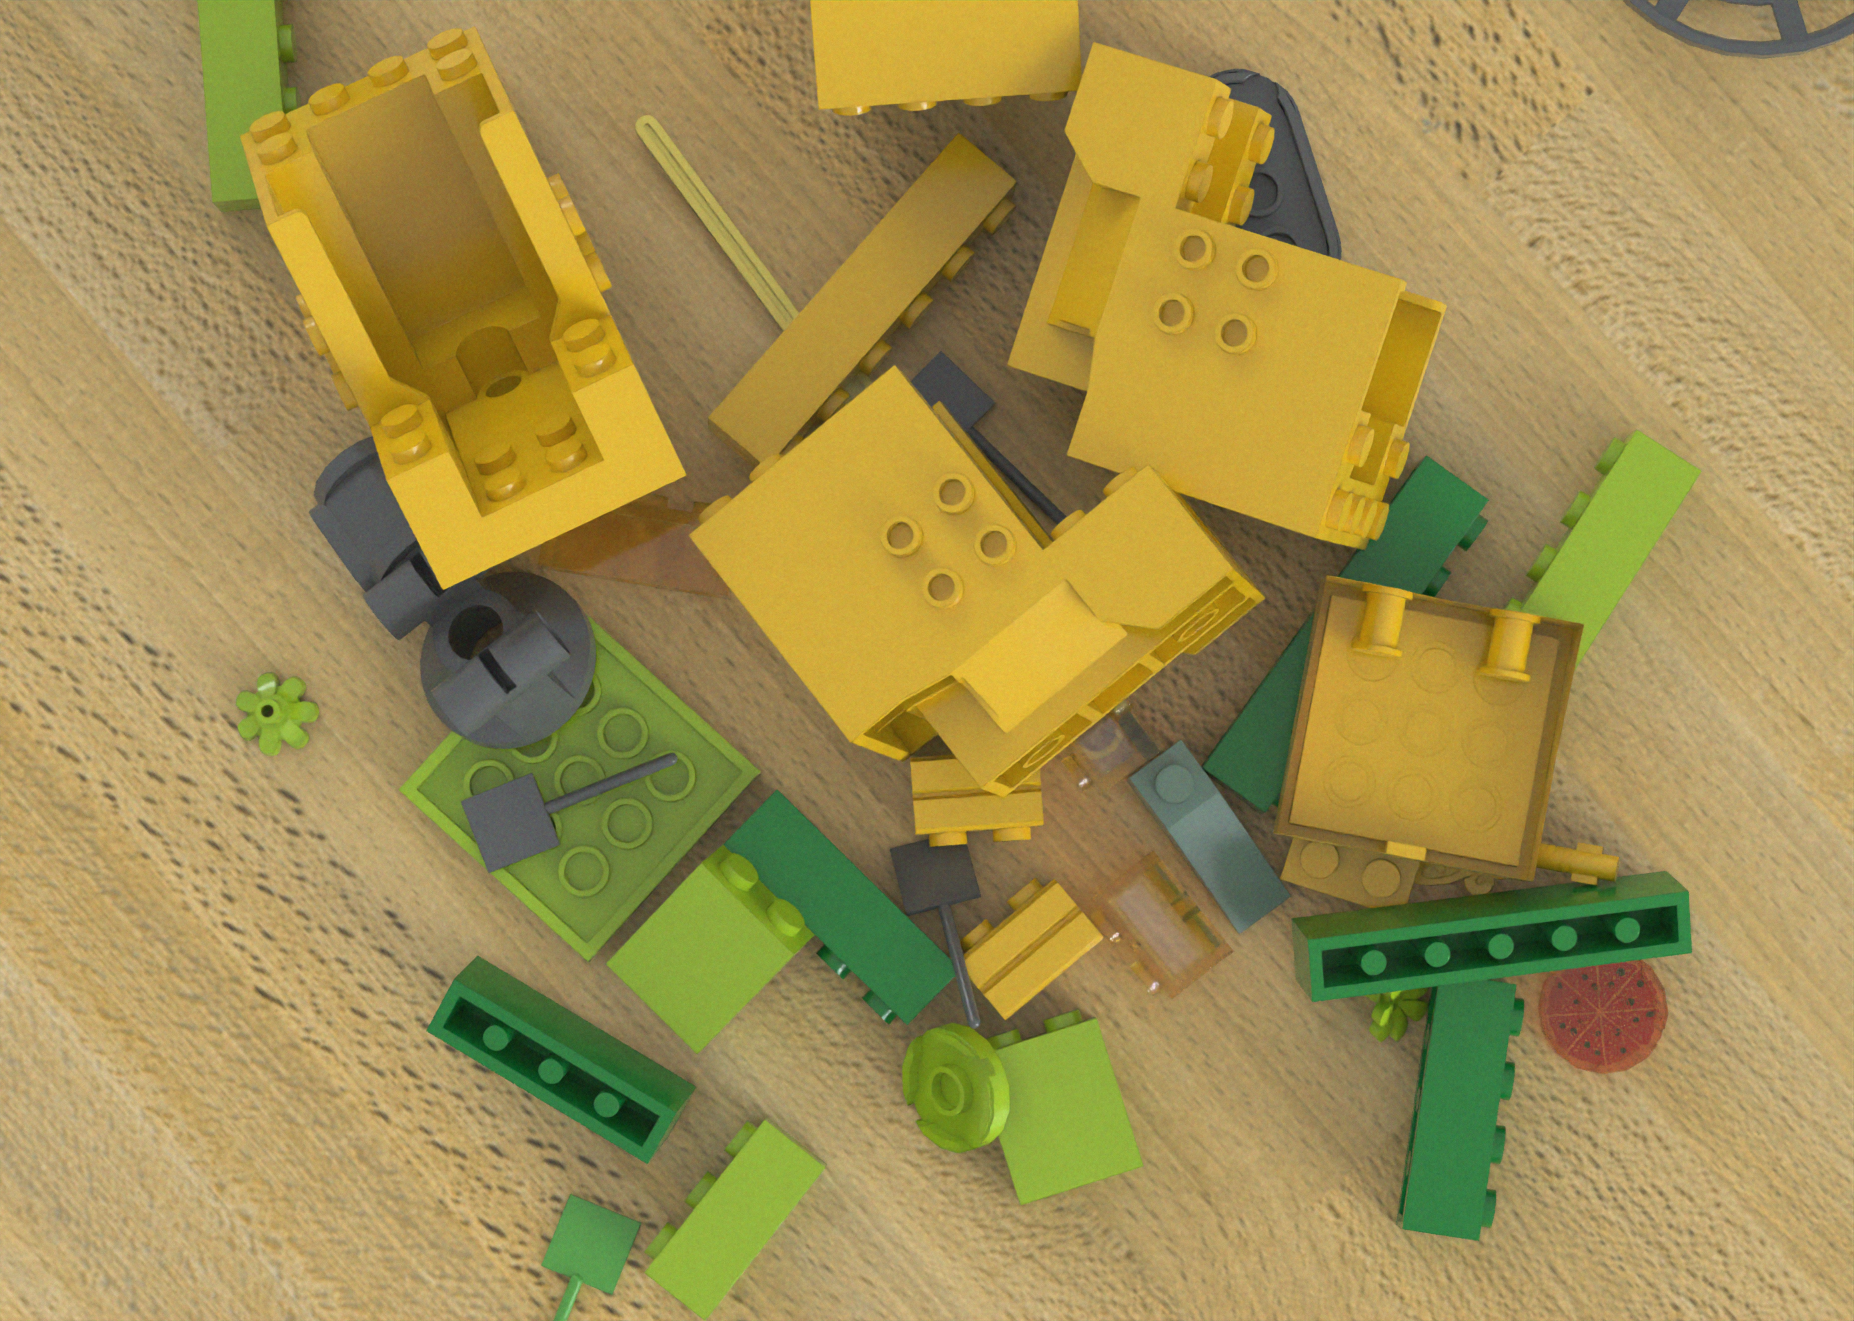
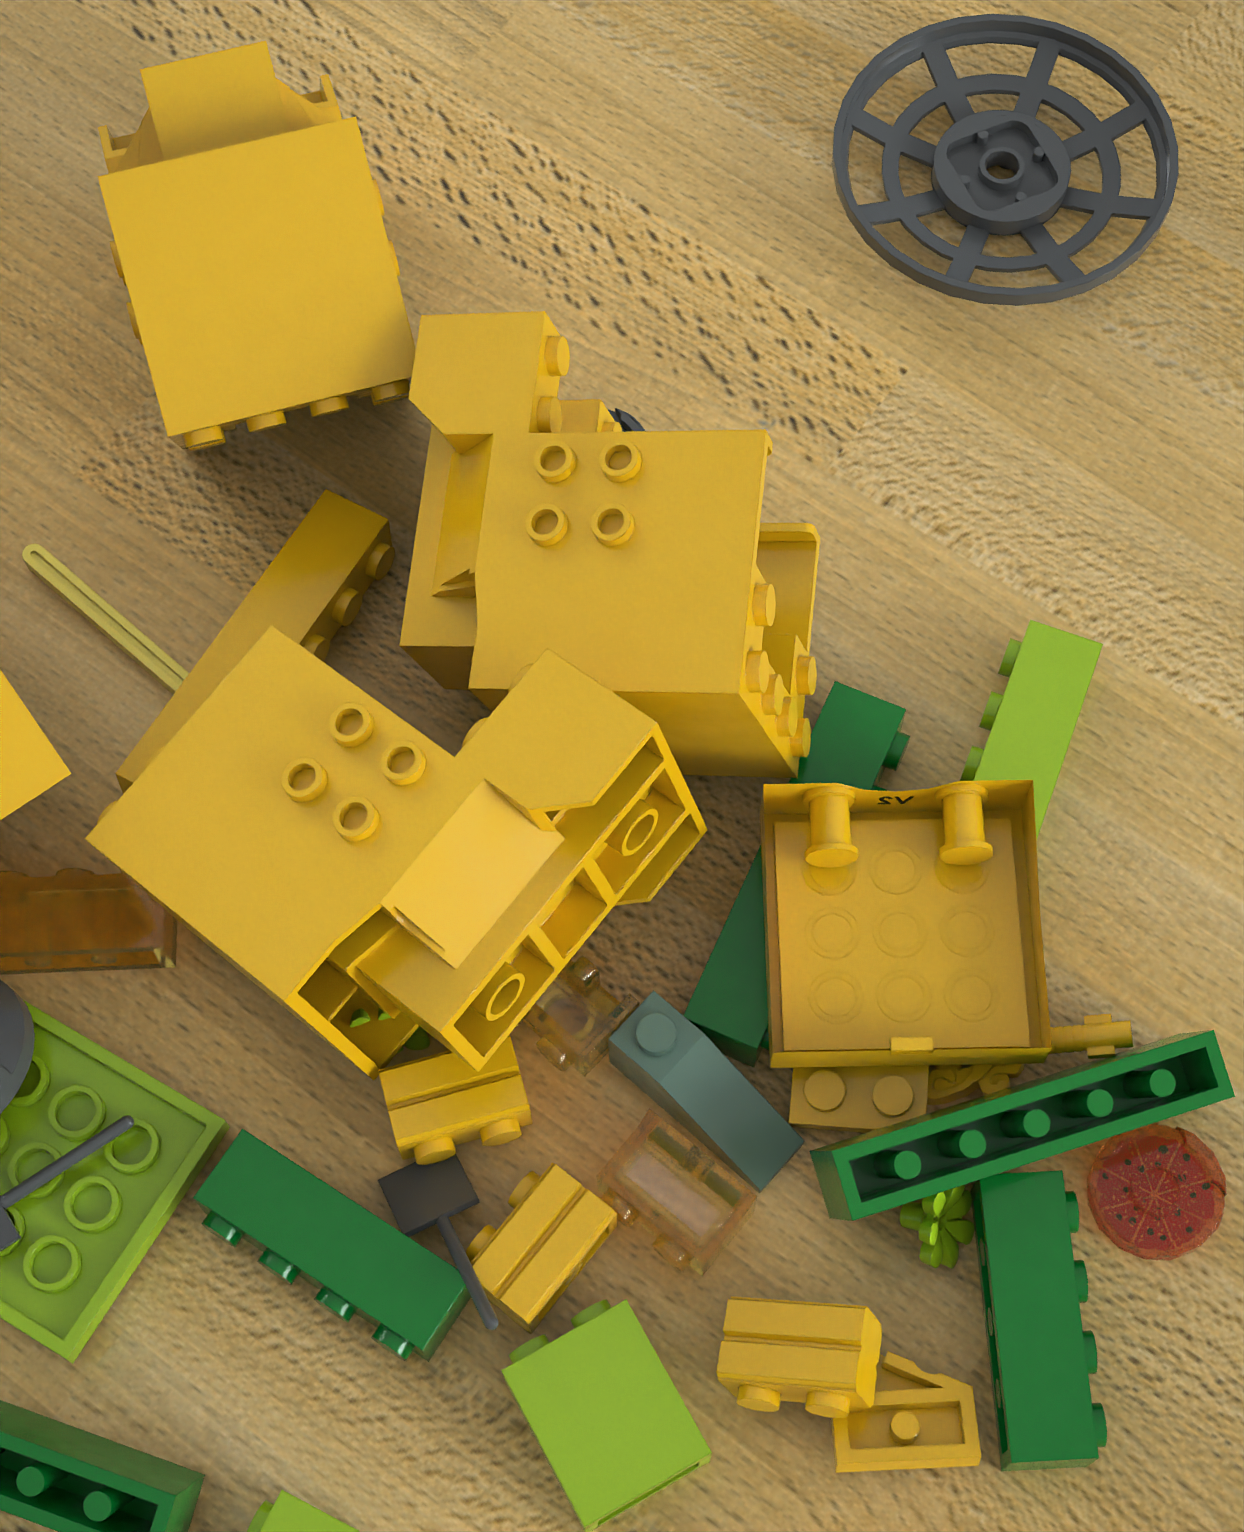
camera: 10 degrees left, 20 degrees down
(710, 948) = (195, 1312): lime brick -> none
(956, 1087) = (489, 1410): lime tile -> none
(1240, 1096) = (799, 1355): none -> yellow brick
(1312, 1158) = (913, 1423): none -> yellow wing

